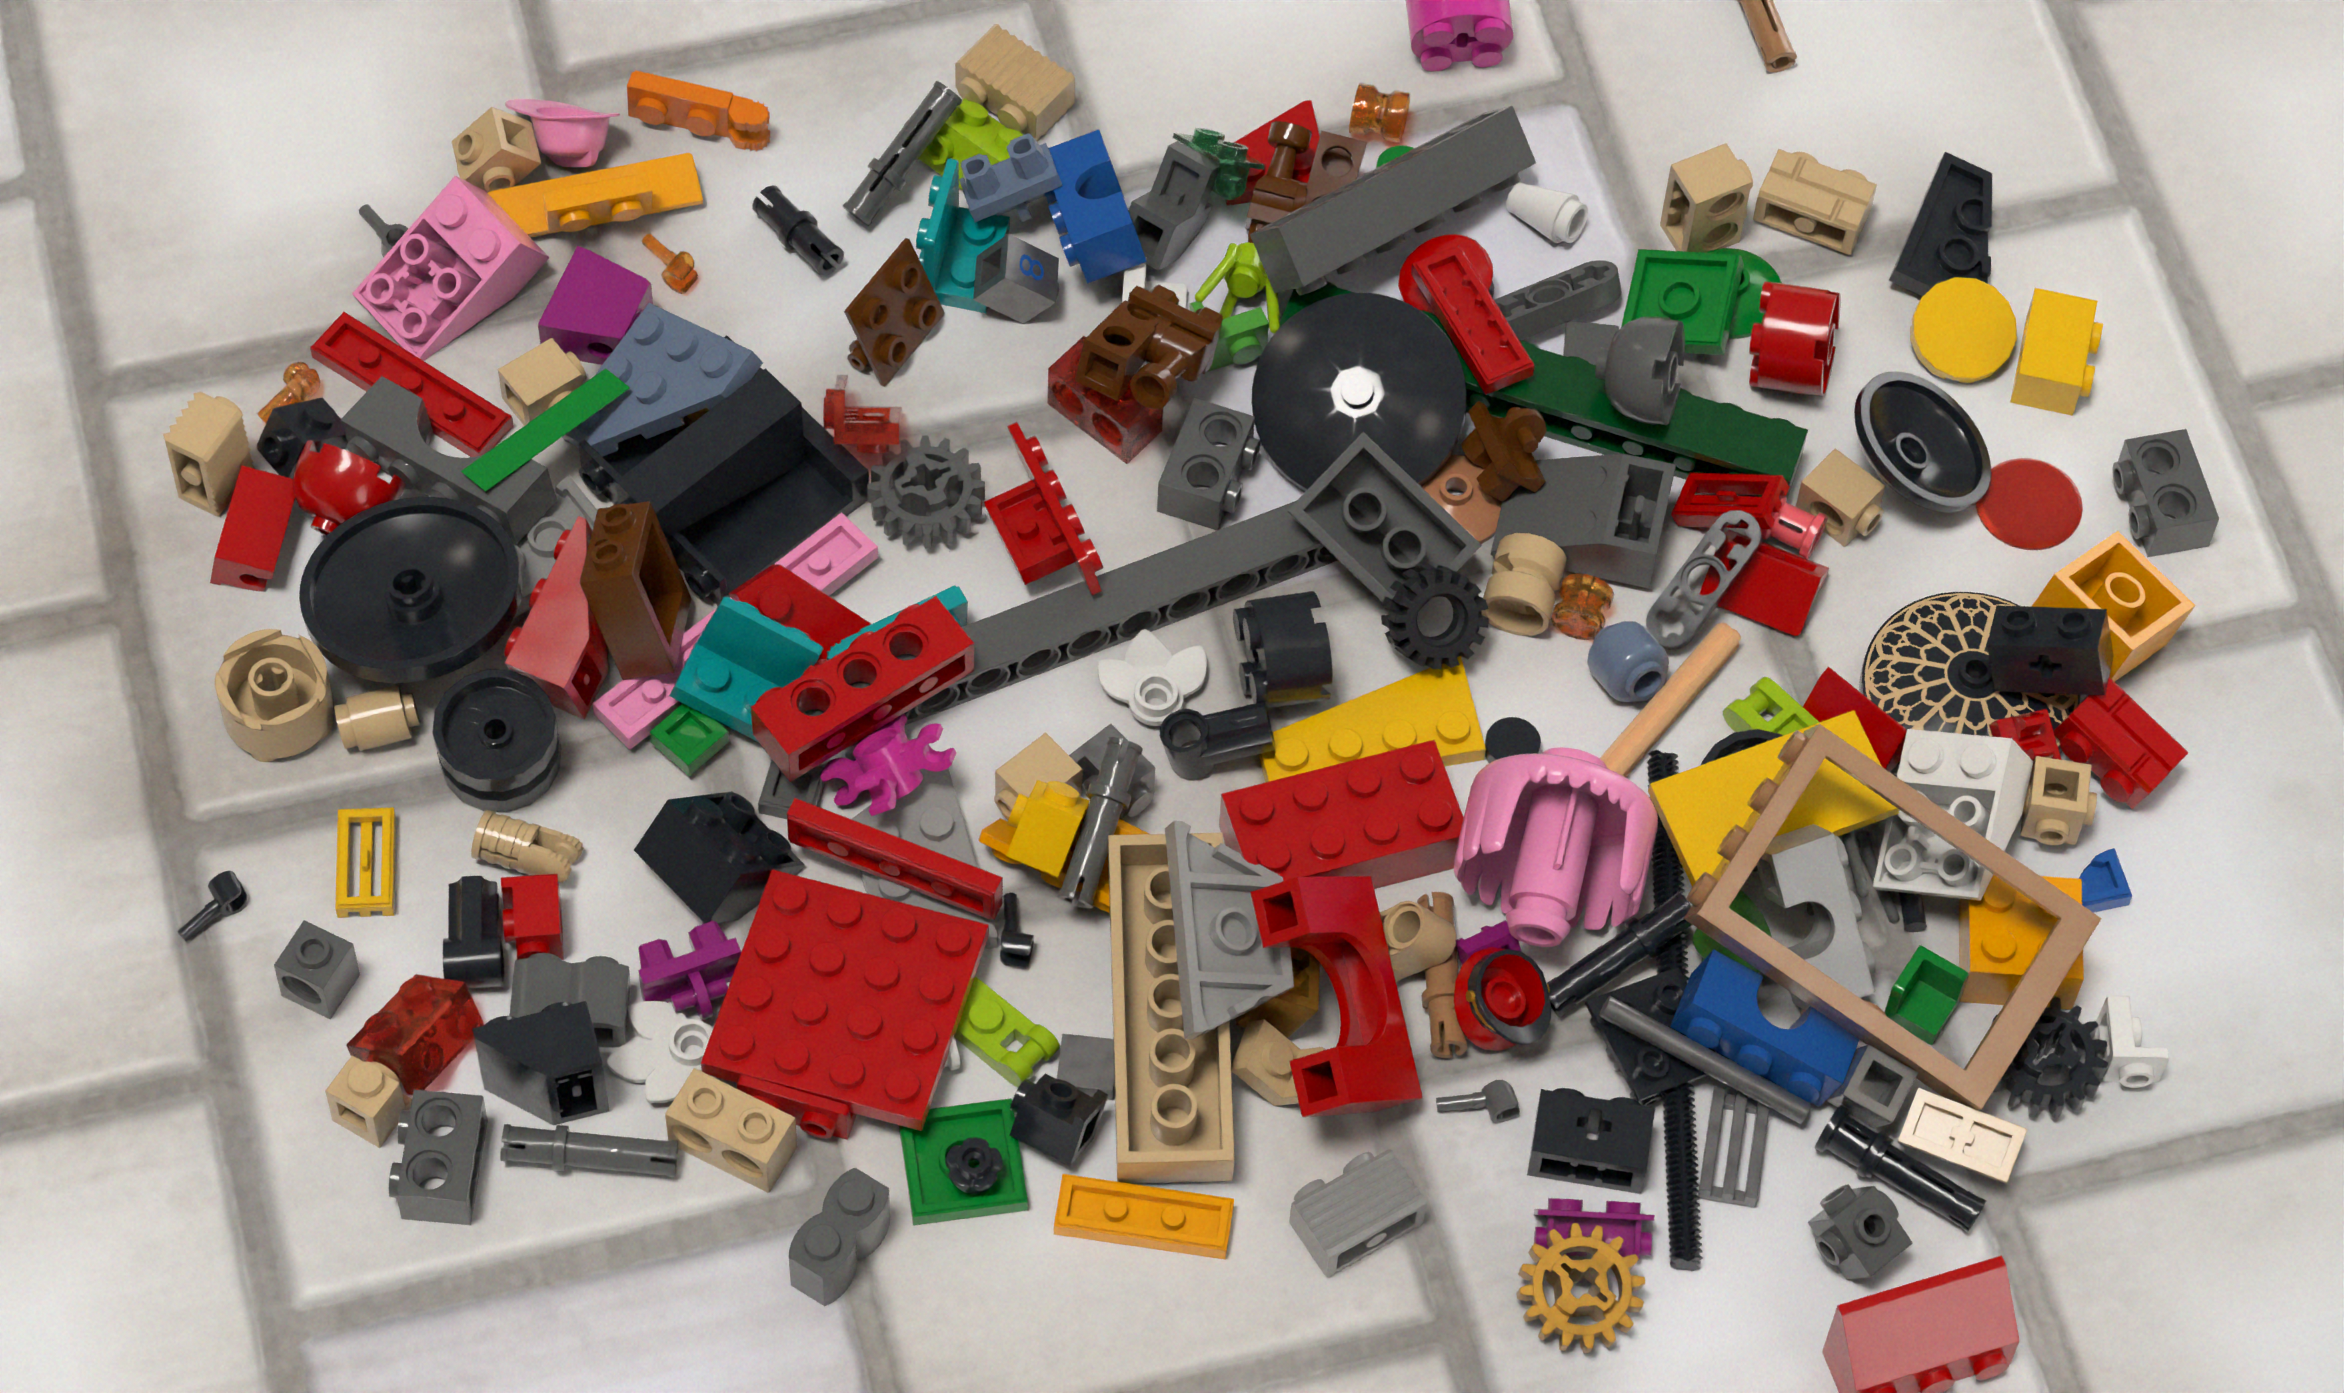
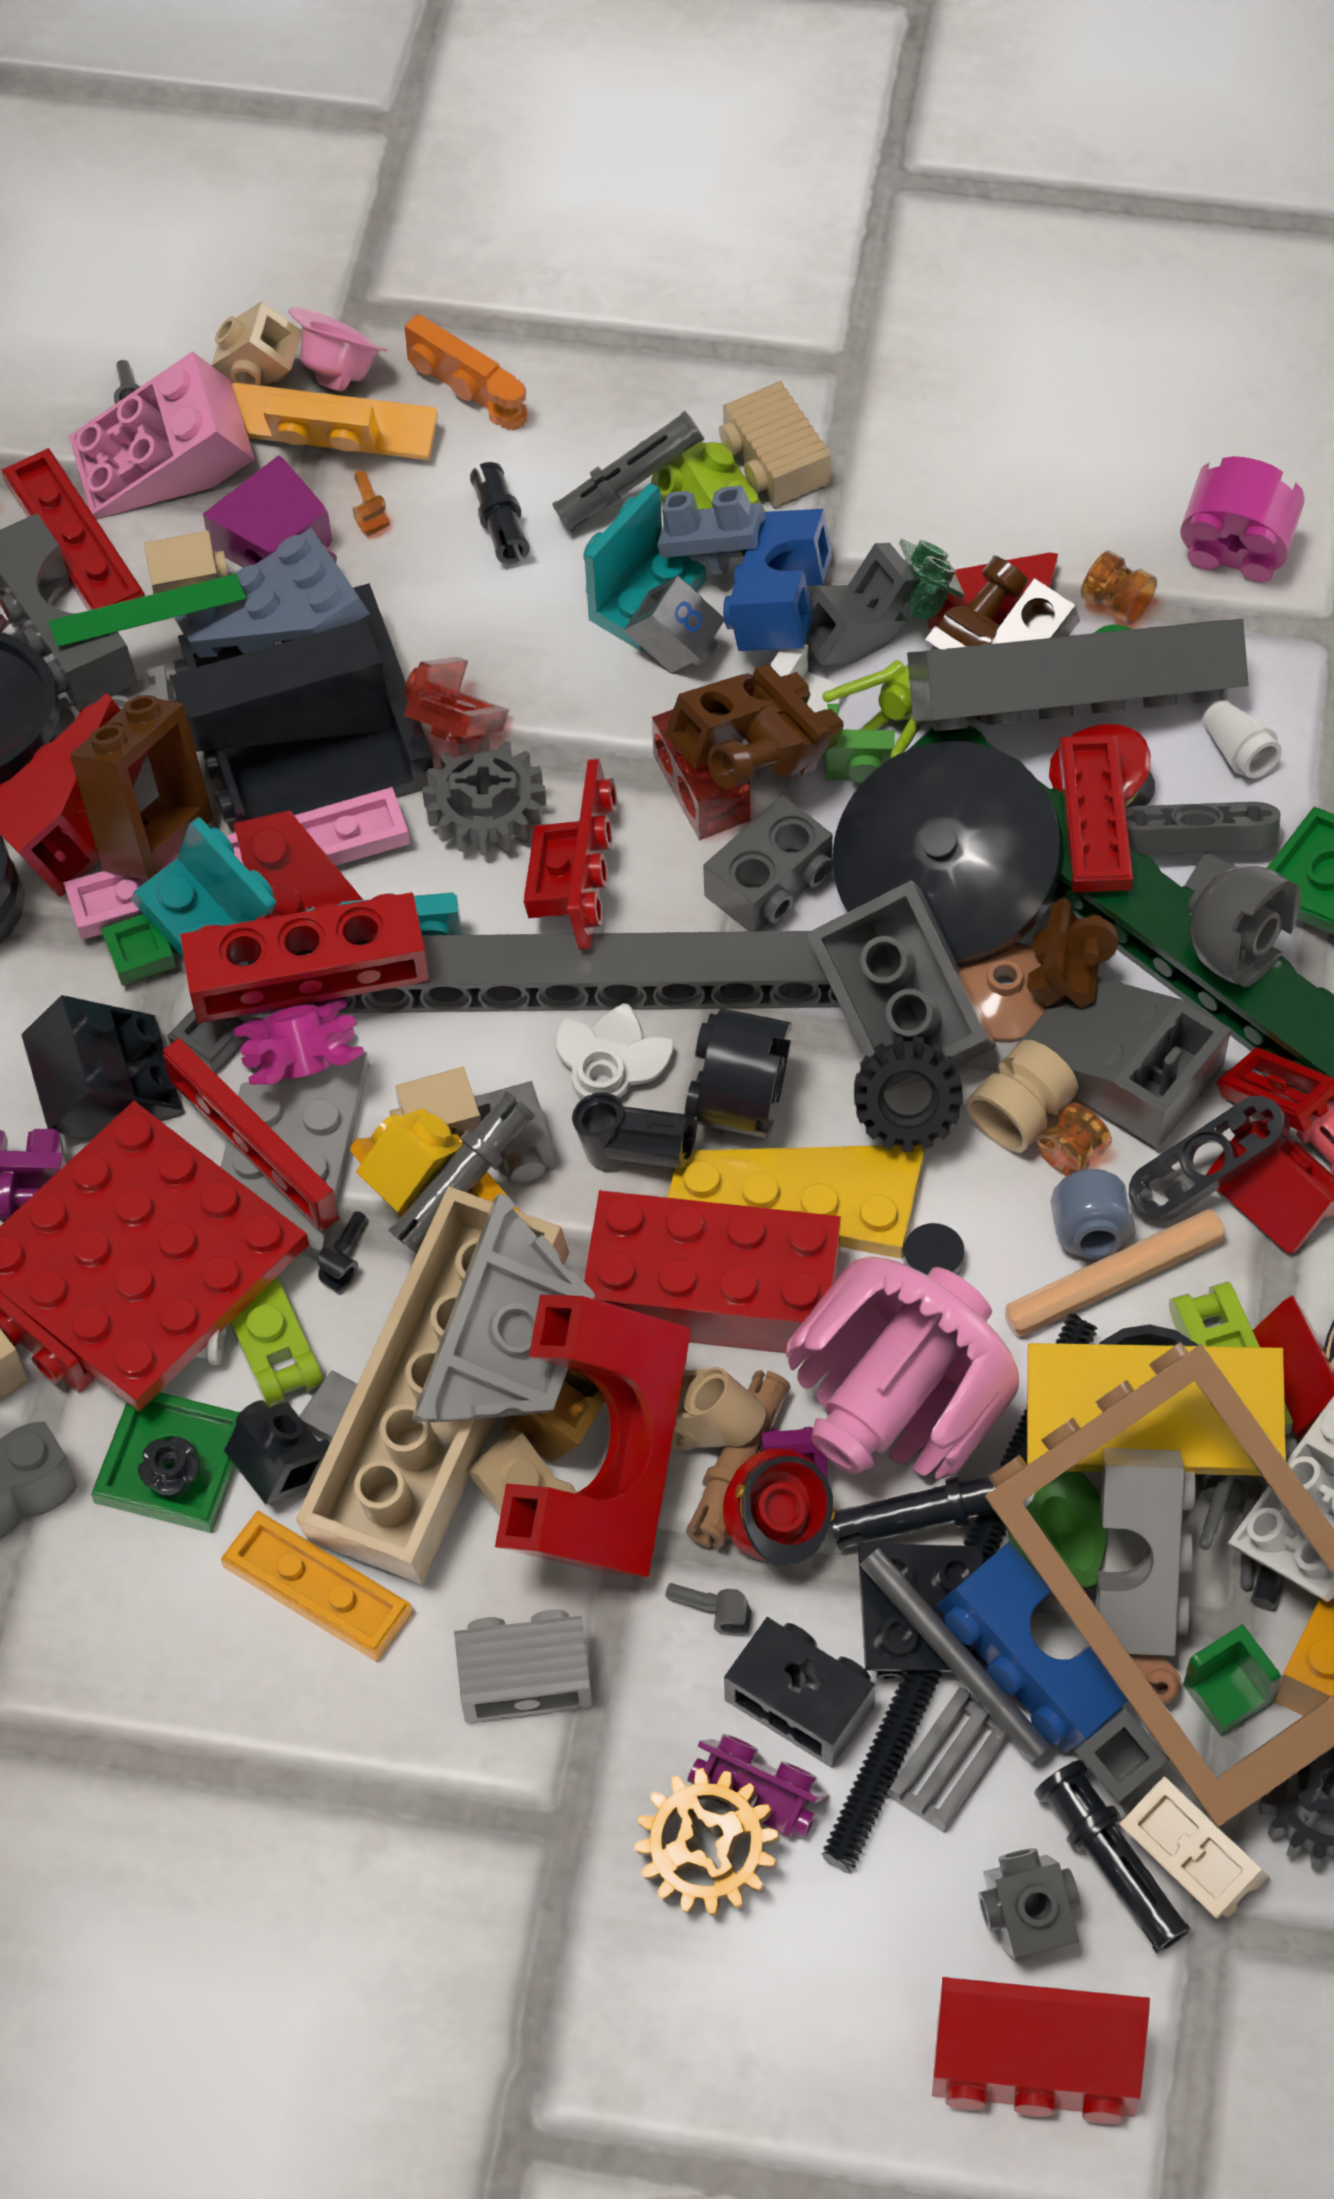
camera: 30 degrees right, 0 degrees up
(892, 314) = (538, 616): reddish brown hinge -> none

